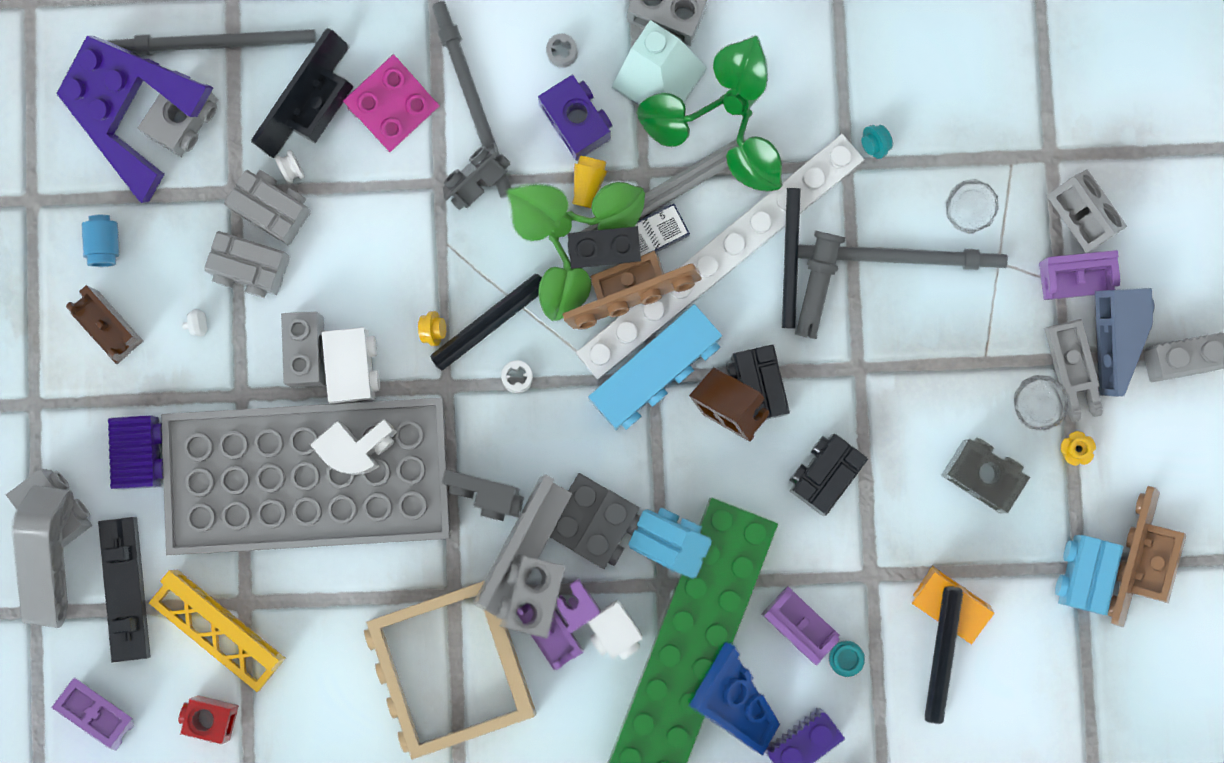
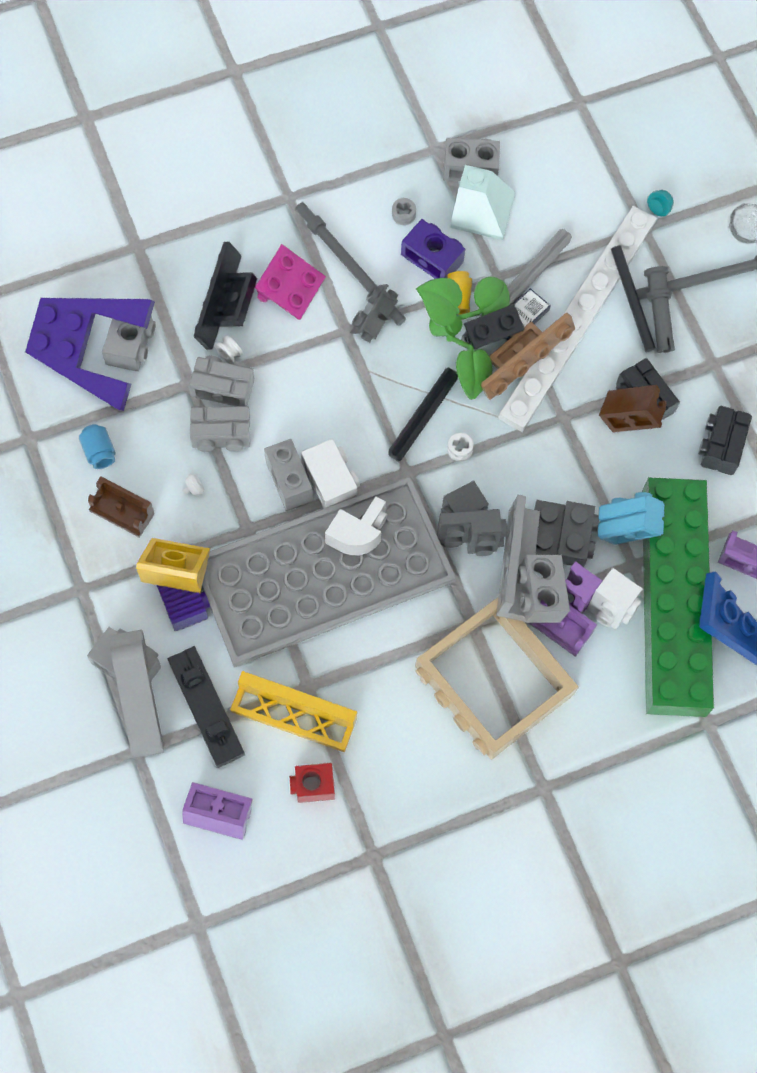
camera: 25 degrees left, 15 degrees down
(130, 422) = (173, 565): none -> yellow slope
(145, 45) = (147, 277): dark grey bar -> none
(431, 328) = (382, 430): yellow plate -> none
(490, 453) = (464, 499): none -> dark grey brick
(655, 367) = (563, 406): medium azure brick -> none
(744, 72) = (551, 168): green plant -> none

